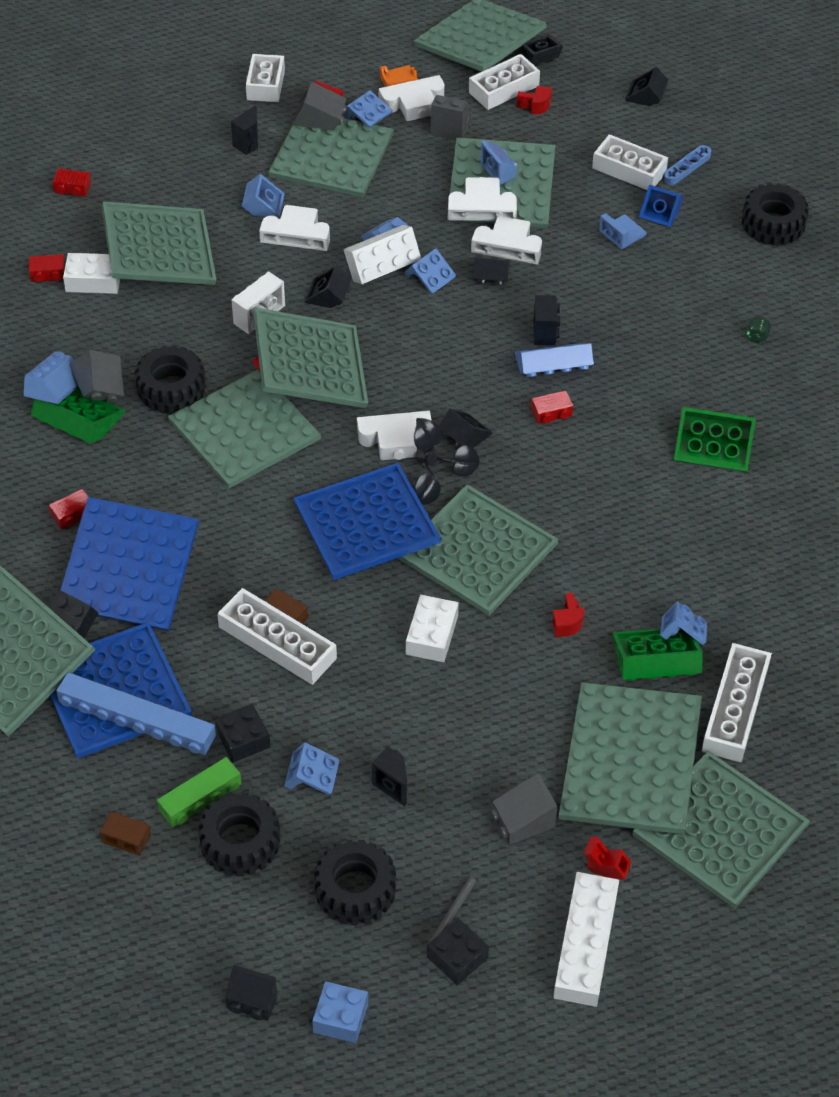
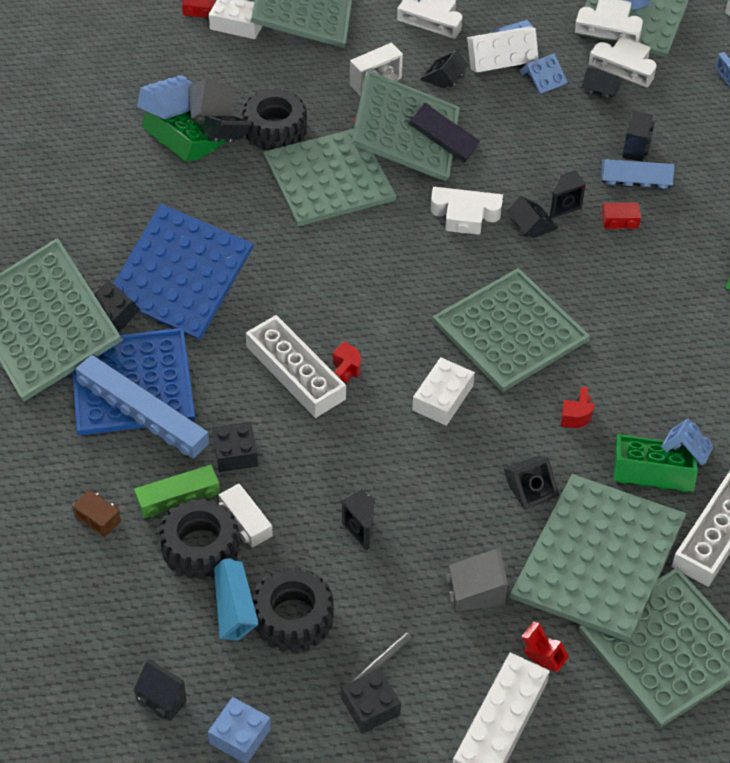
camera: 15 degrees right, 0 degrees up
(69, 509) = (143, 213): red brick -> none
(123, 399) = (225, 127): none -> black slope
(288, 605) = (315, 341): reddish brown brick -> none
(288, 806) = (251, 521): none -> white brick
(295, 887) = (234, 600): none -> dark azure slope
(312, 768) = (290, 495): medium blue bracket -> none
(327, 618) = (348, 362): none -> red brick
(350, 356) = (444, 132): none -> black tile
(366, 521) = (413, 281): blue plate -> none
(425, 436) = (487, 216): black plant -> none
(495, 396) = (567, 194): none -> black slope
(545, 698) = (532, 481): none -> black slope

